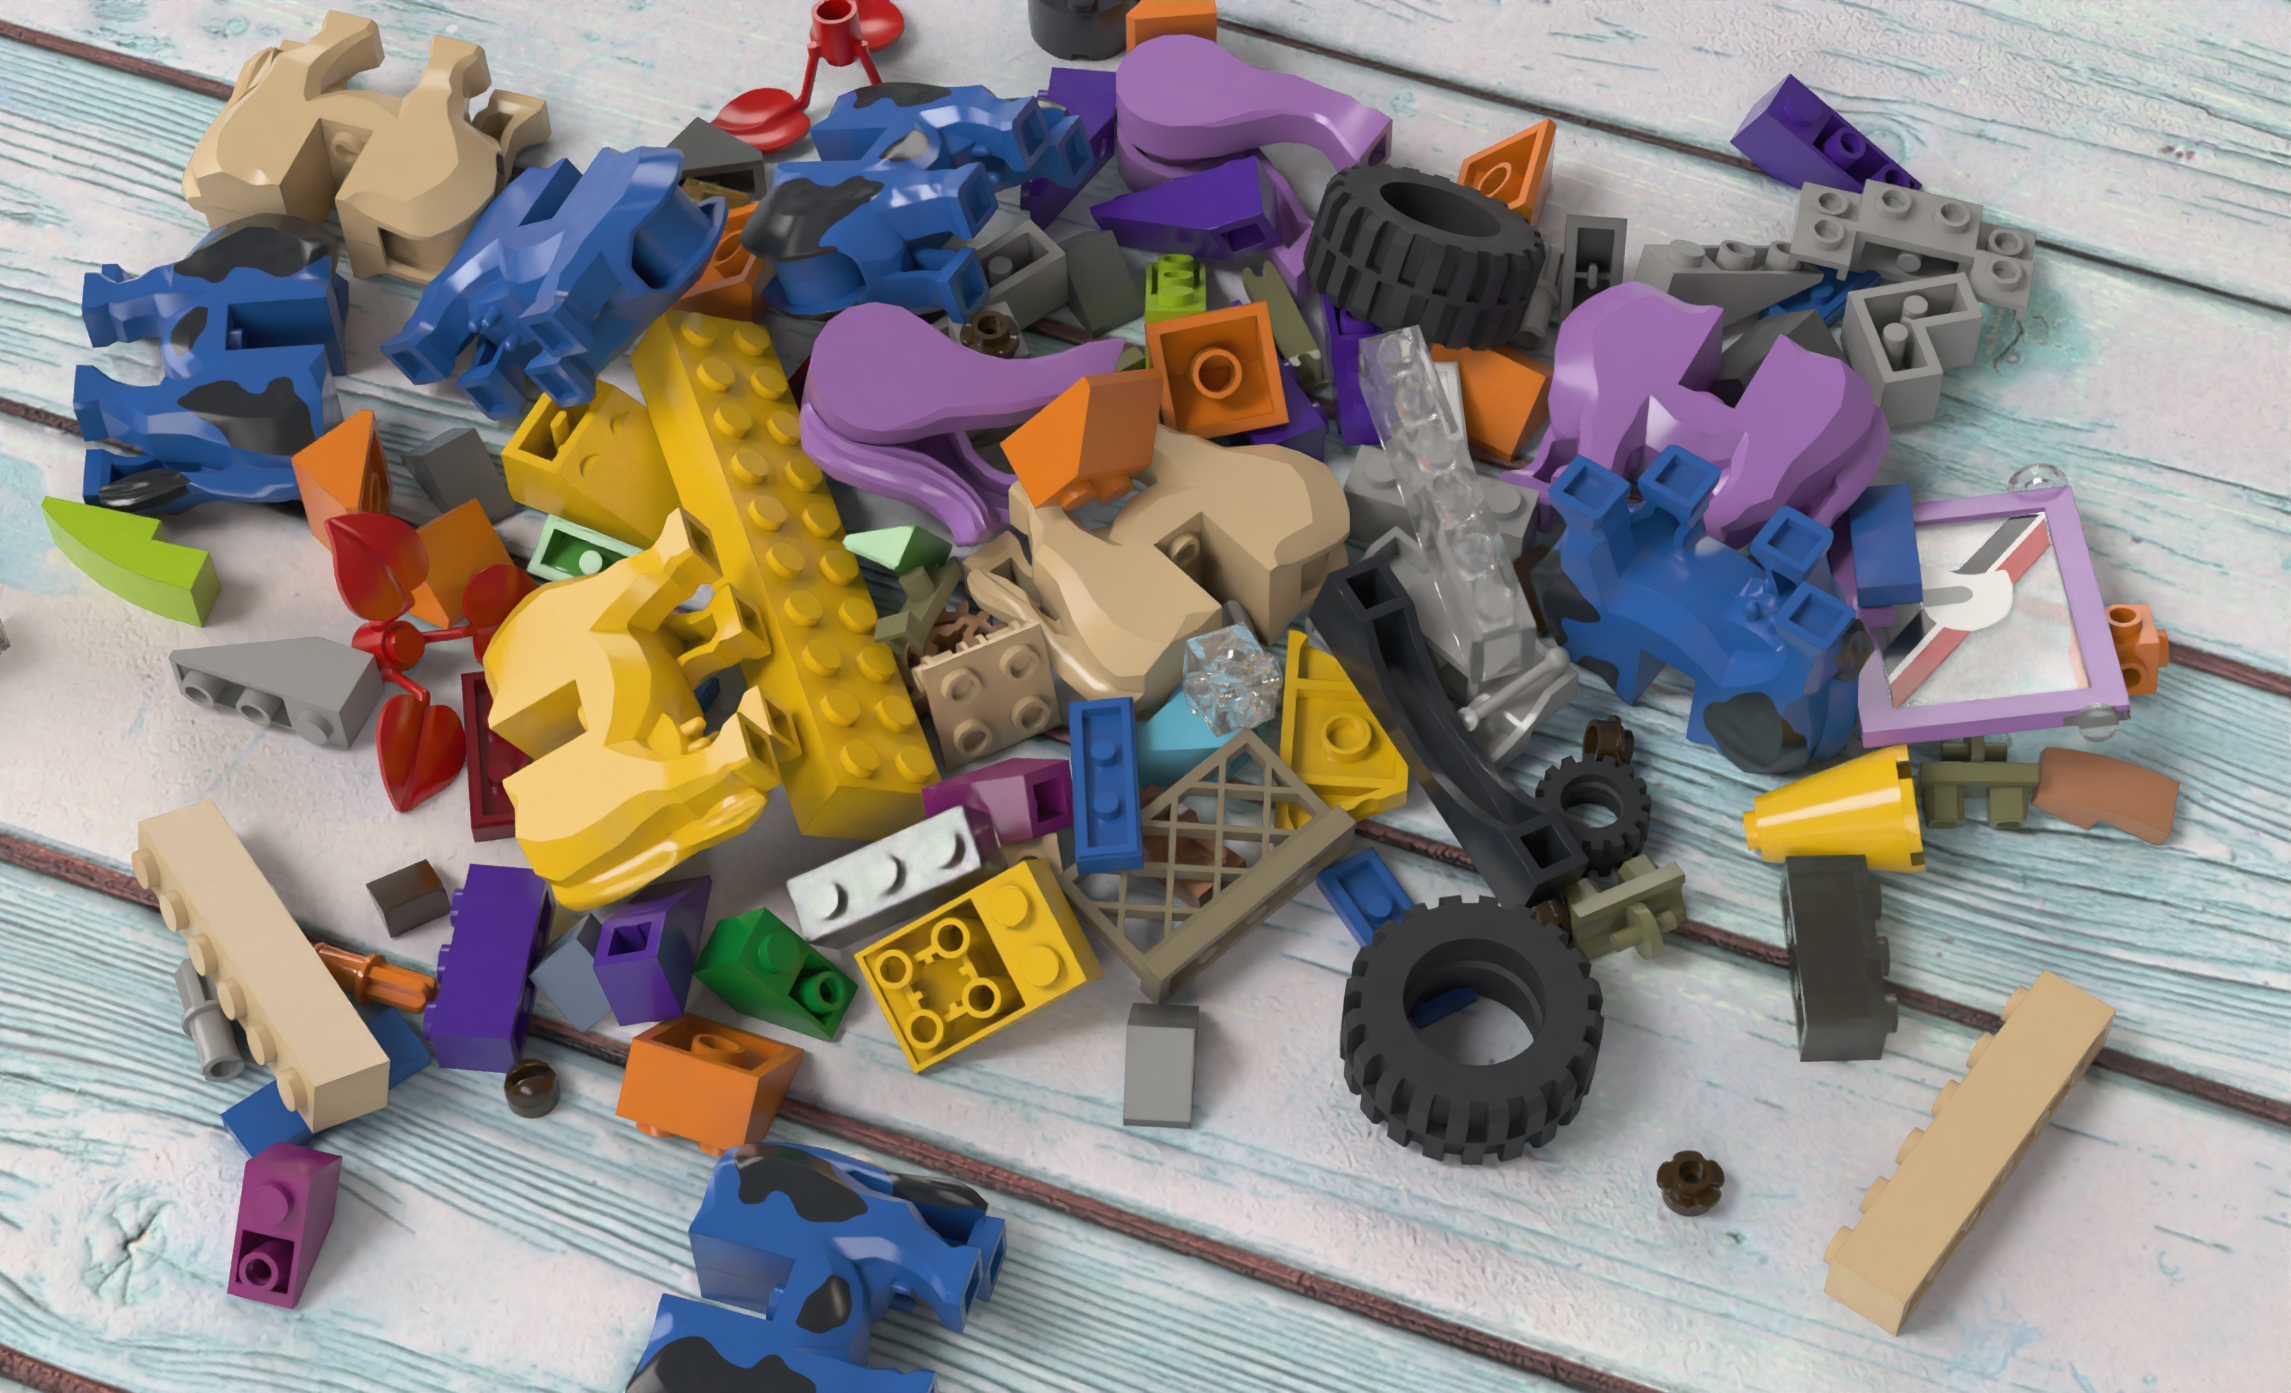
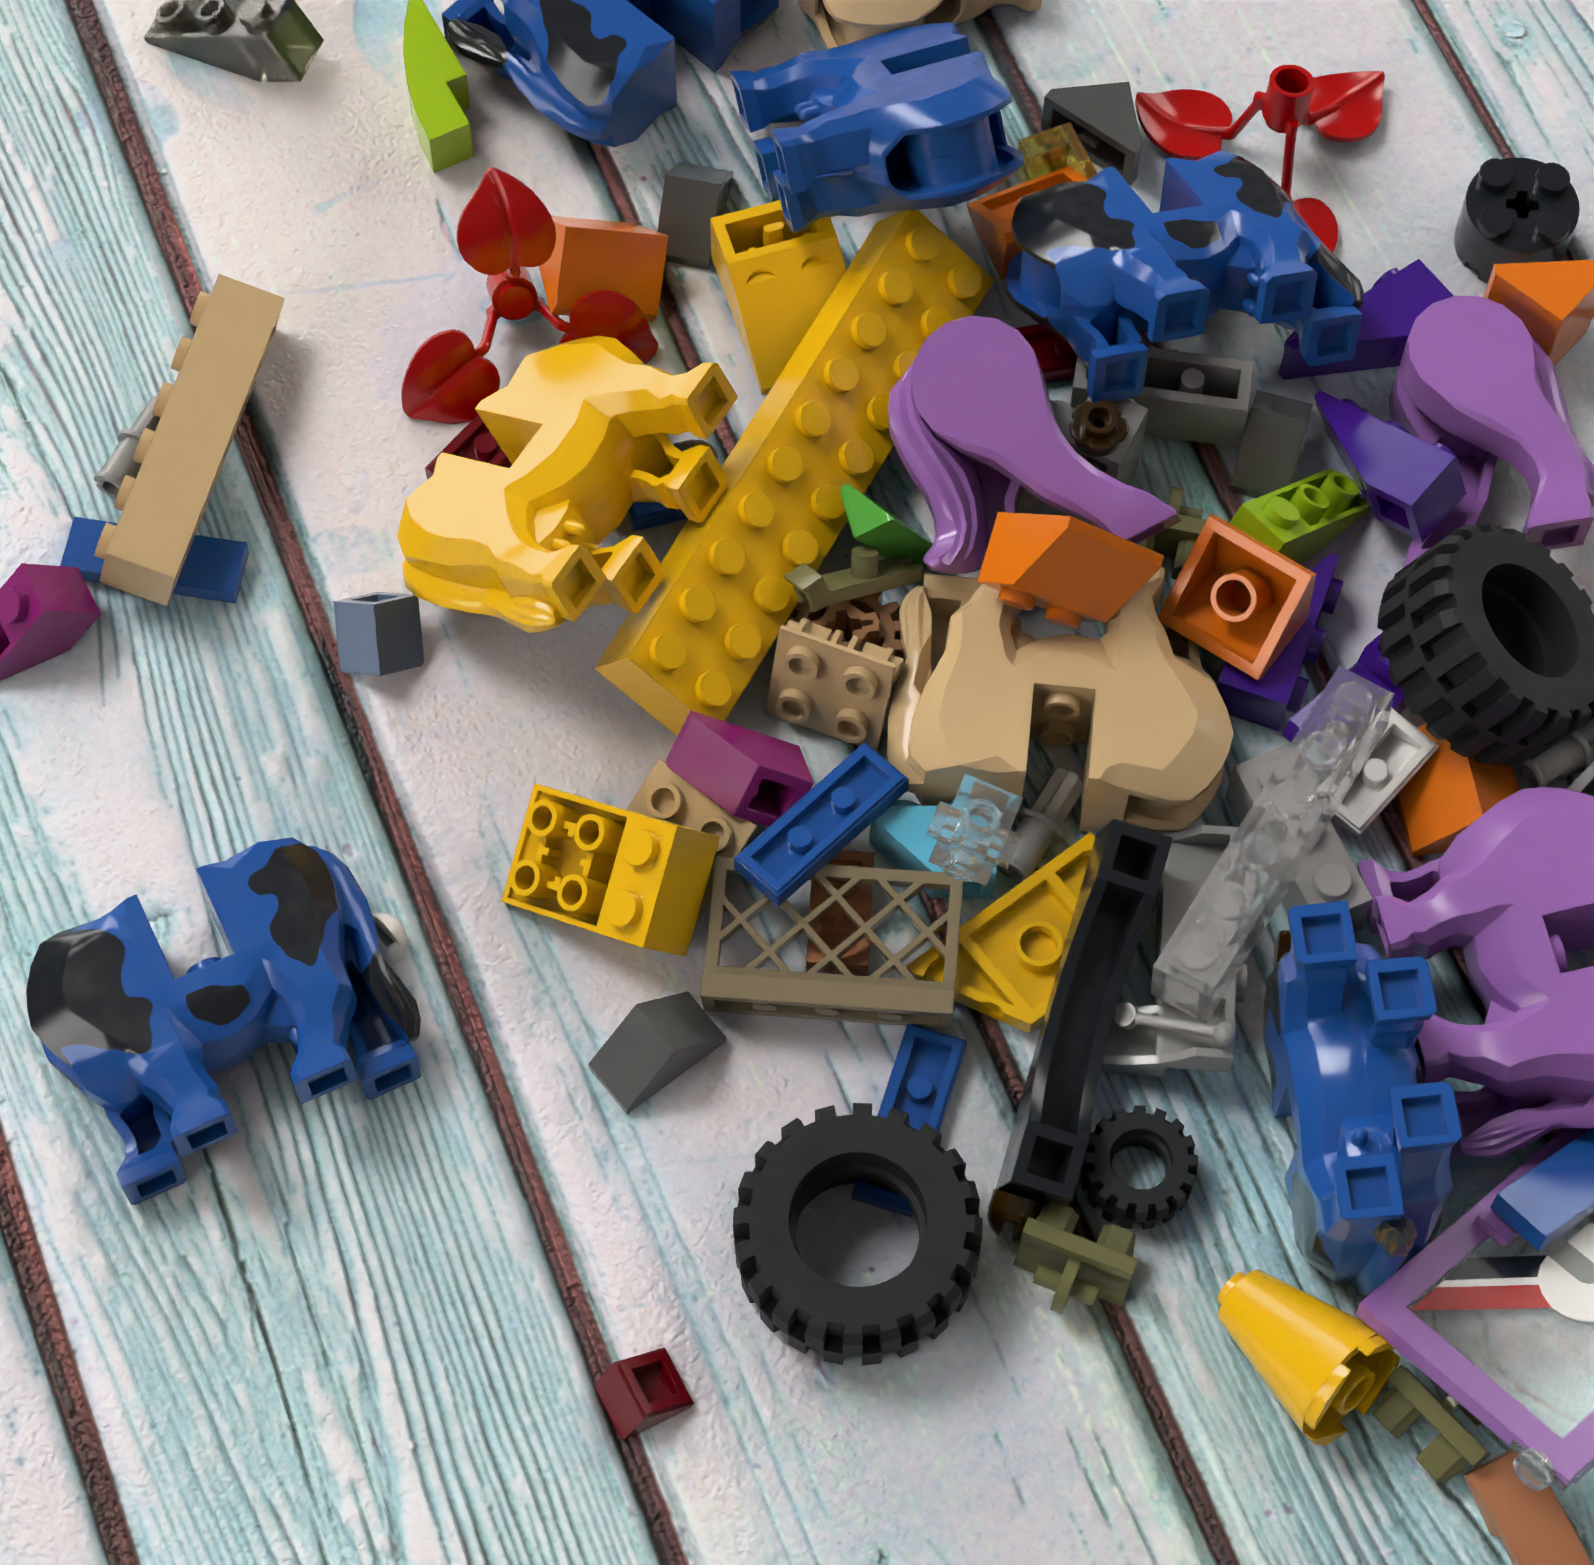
camera: 45 degrees right, 10 degrees up
(295, 684) = (436, 281): light grey slope -> none
(344, 473) = (602, 157): orange slope -> none
(376, 981) = (254, 511): orange axle -> none
(409, 897) = (340, 477): dark brown slope -> none
(483, 974) = (294, 591): dark purple brick -> none
(531, 1088) = (263, 687): dark brown hinge -> none
(574, 551) = (708, 333): slope -> none
(651, 950) = (421, 653): dark purple slope -> none
(706, 1082) = (365, 778): orange slope -> none
(774, 975) = (484, 750): green slope -> none
(897, 877) = (614, 758): clear smoke brick -> none
(1289, 329) = (1359, 606): olive piece -> none
(1442, 1296) = (642, 1392): none -> dark red slope
(1609, 739) = (1213, 1129): dark brown plate -> none
(1687, 1198) = (889, 1506): dark brown plate -> none
(1836, 958) = (1178, 1440): clear smoke brick -> none

